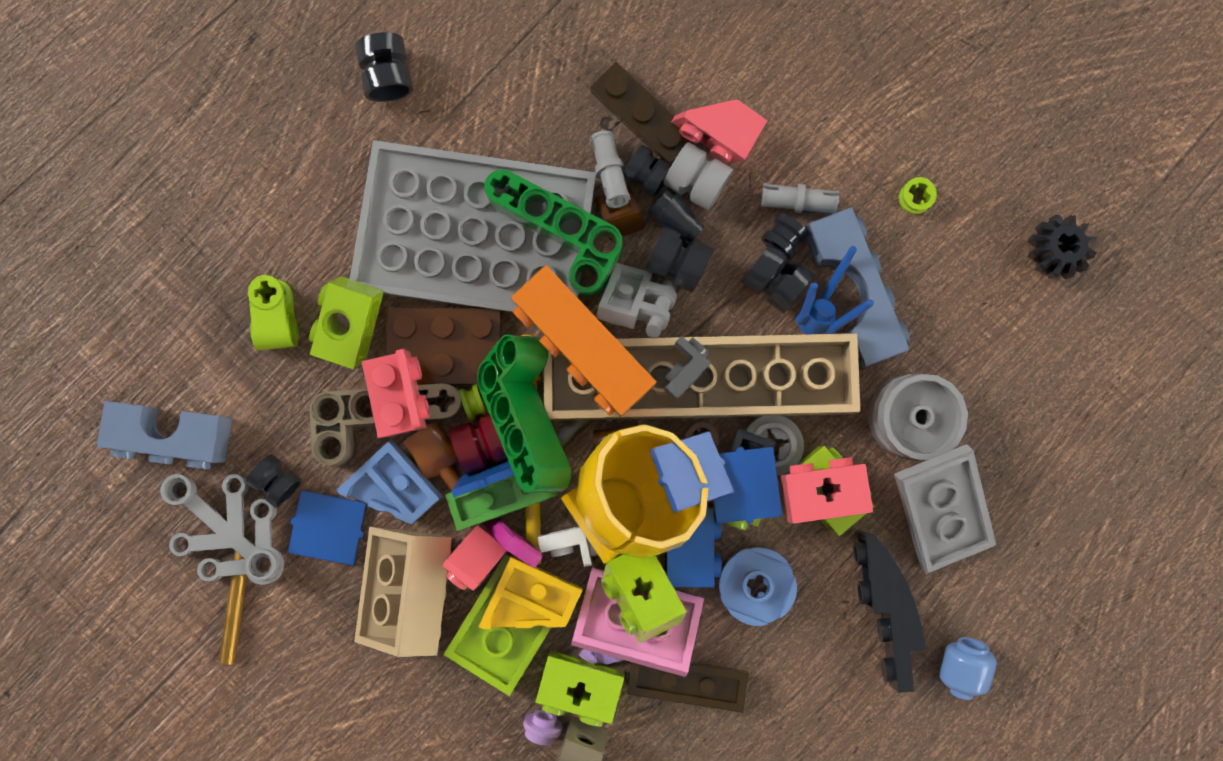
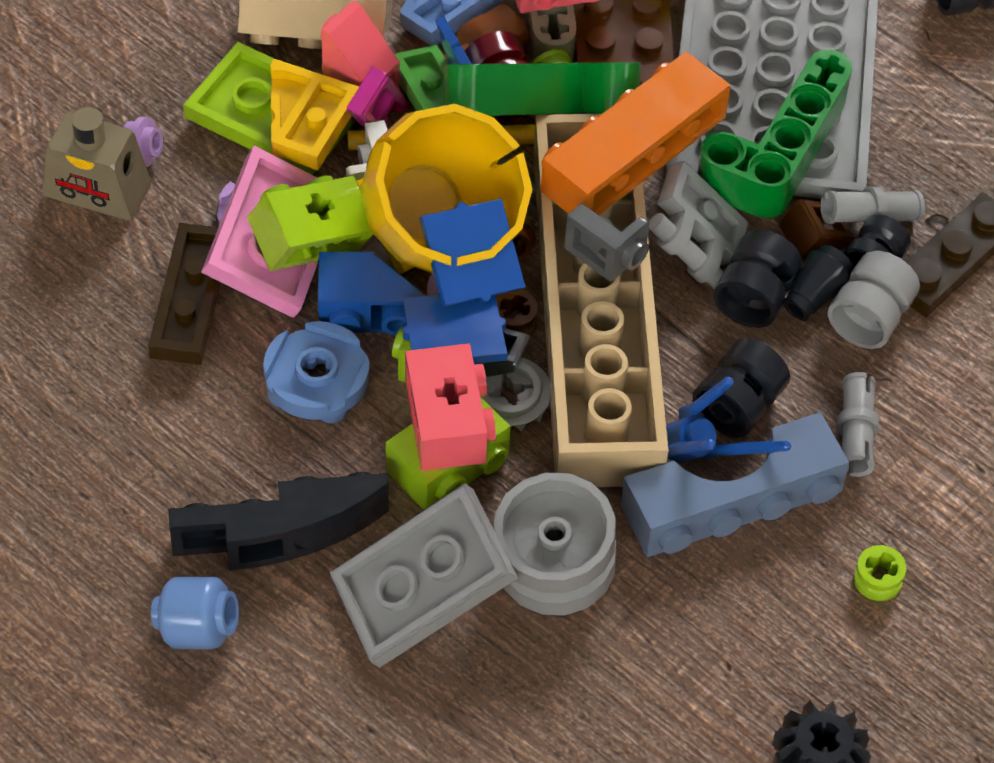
camera: 85 degrees right, 30 degrees down
(600, 682) = (189, 175): lime brick -> none
(723, 127) = (946, 324): coral slope -> none
(786, 234) = (799, 398): black wheel -> none

